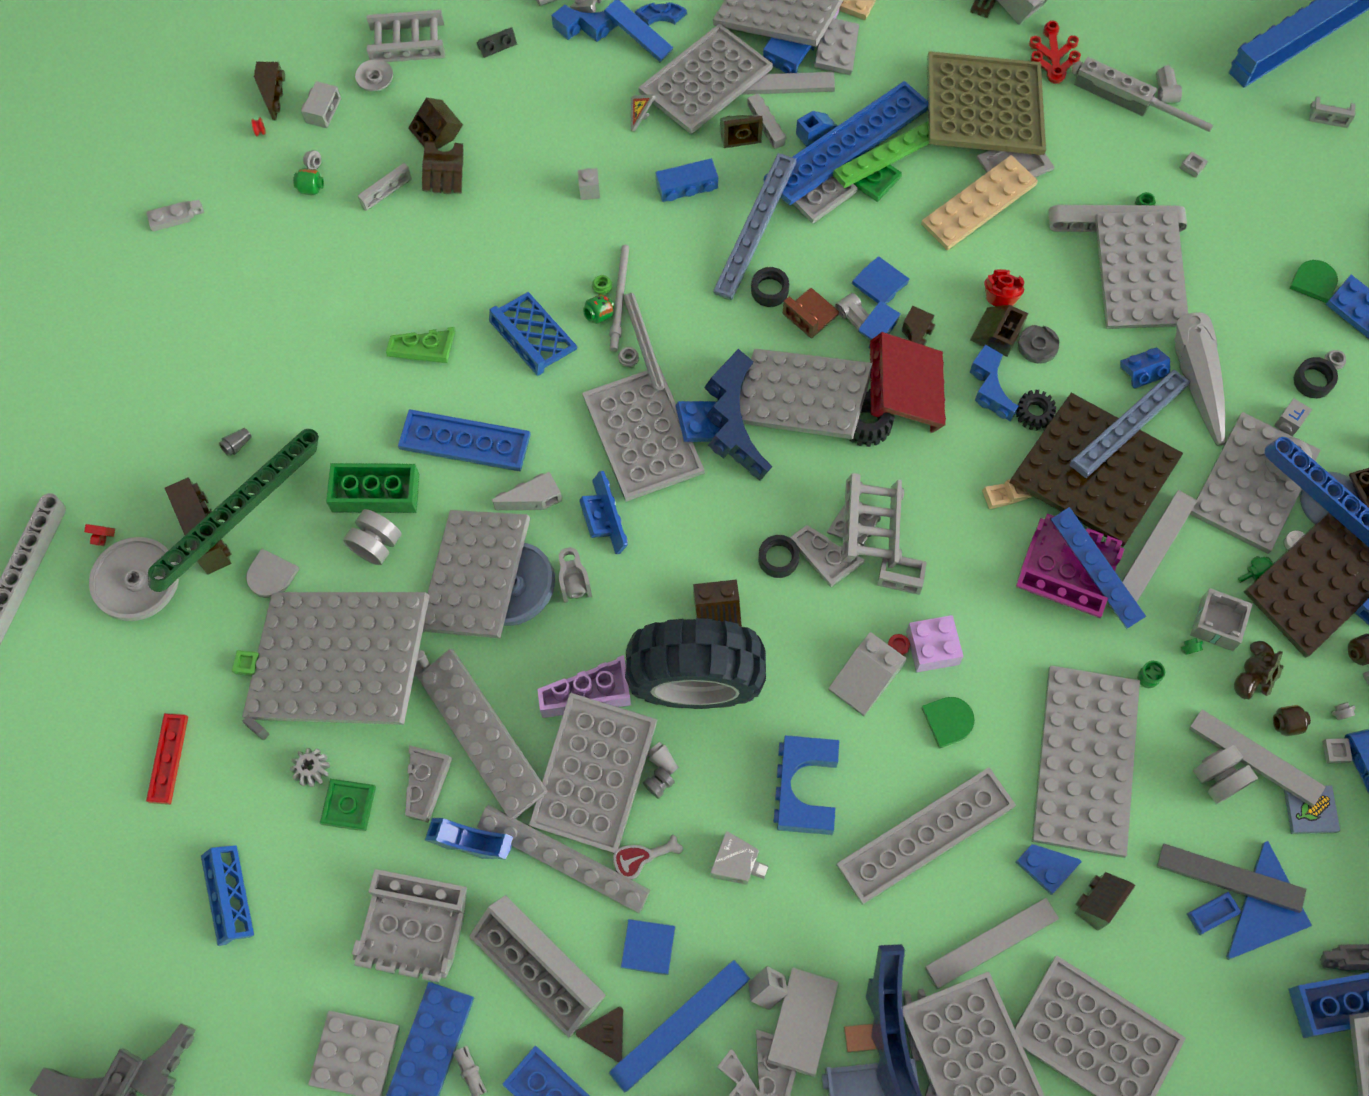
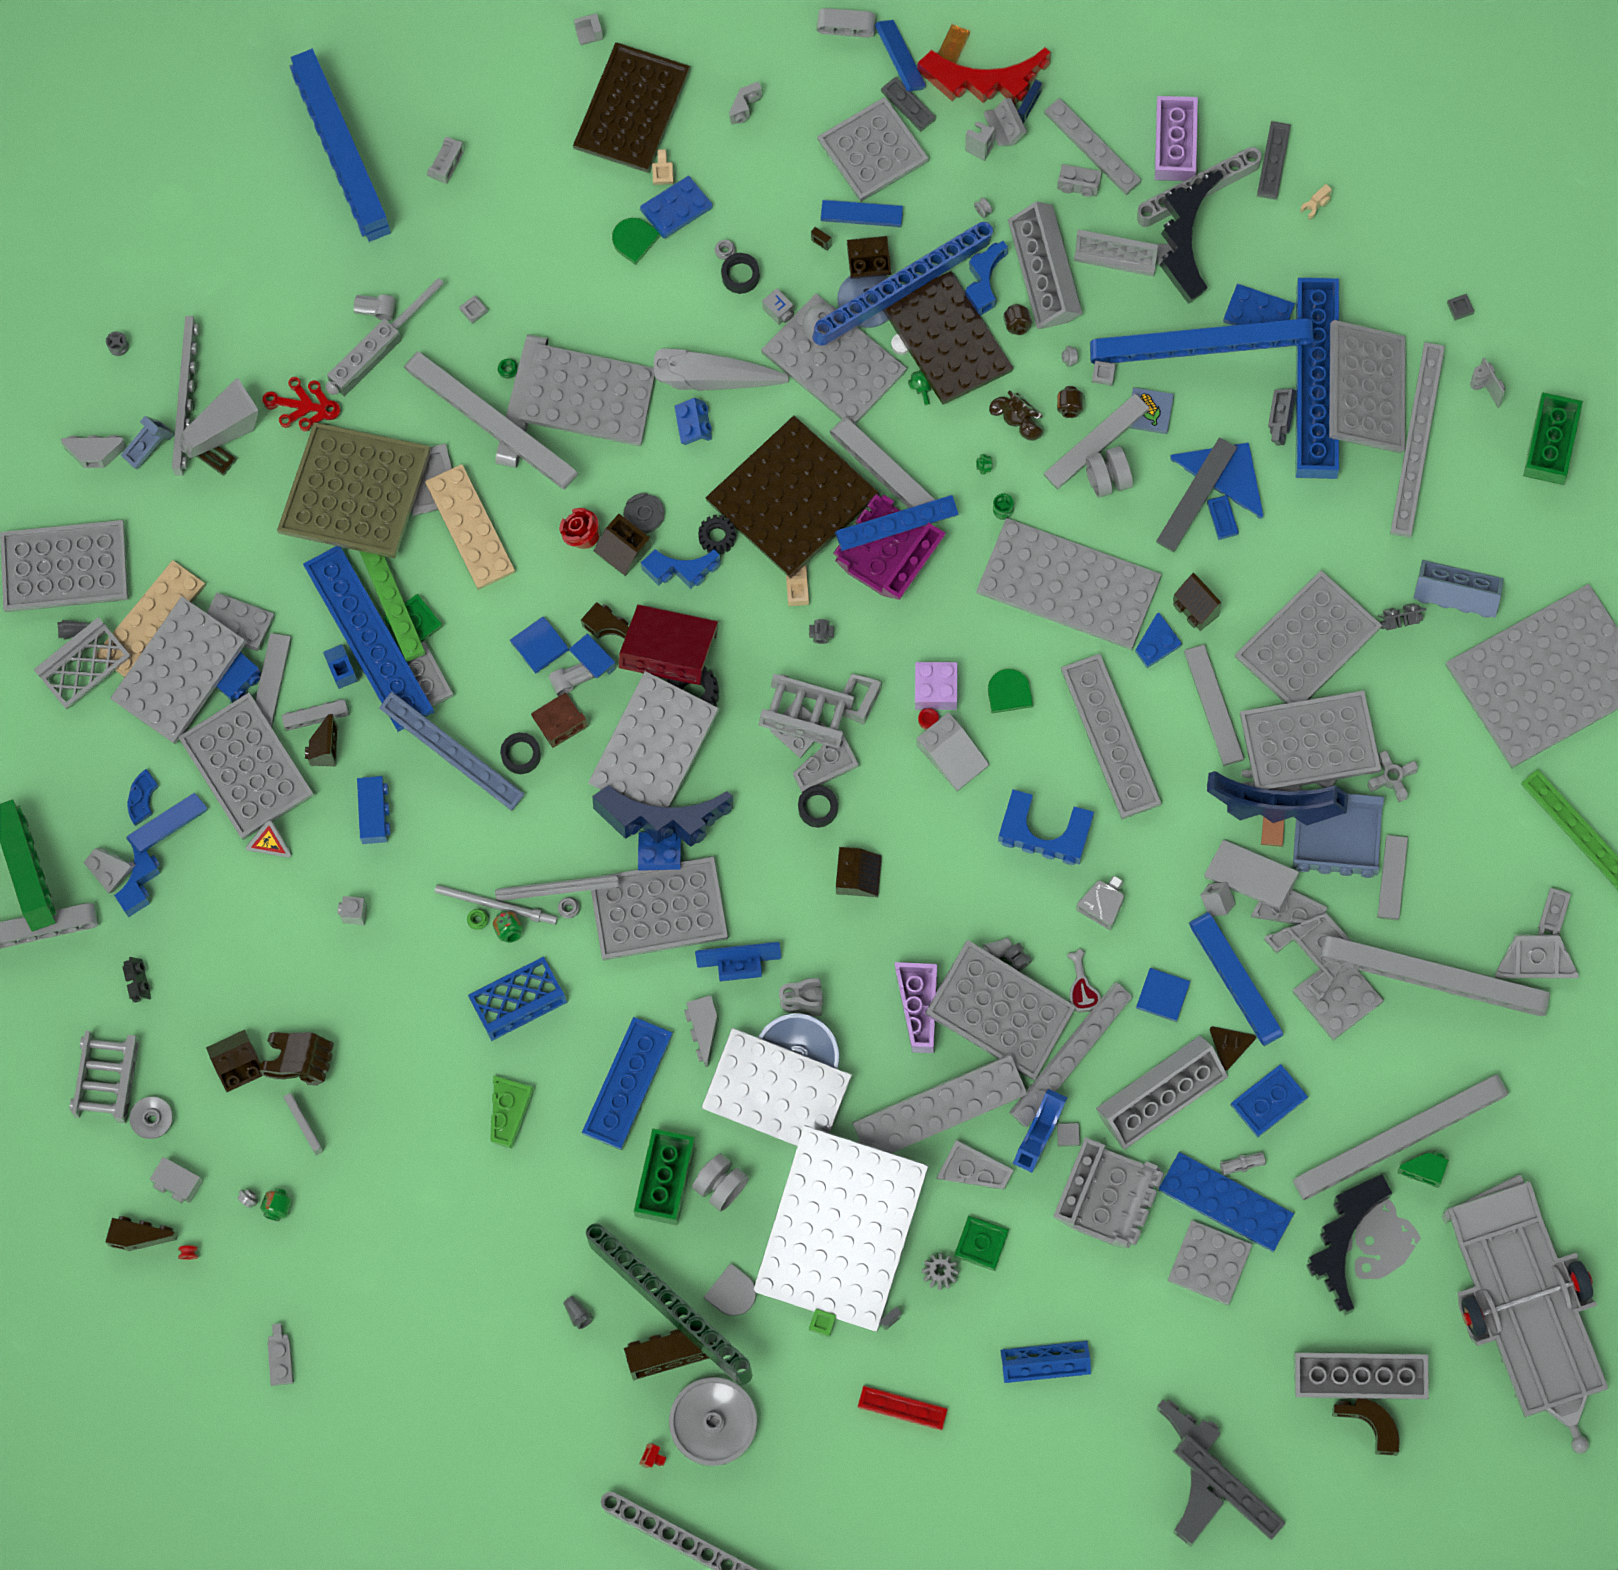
camera: 75 degrees left, 5 degrees up
(476, 872) = (1068, 1134): none -> light grey tile
(695, 664) = (928, 892): black wheel -> none
(962, 522) = (821, 631): none -> dark grey gear
(1085, 193) = (491, 420): none -> light grey beam
(1129, 423) = (754, 453): sand blue tile -> none
(1221, 619) = (964, 431): light grey container -> none

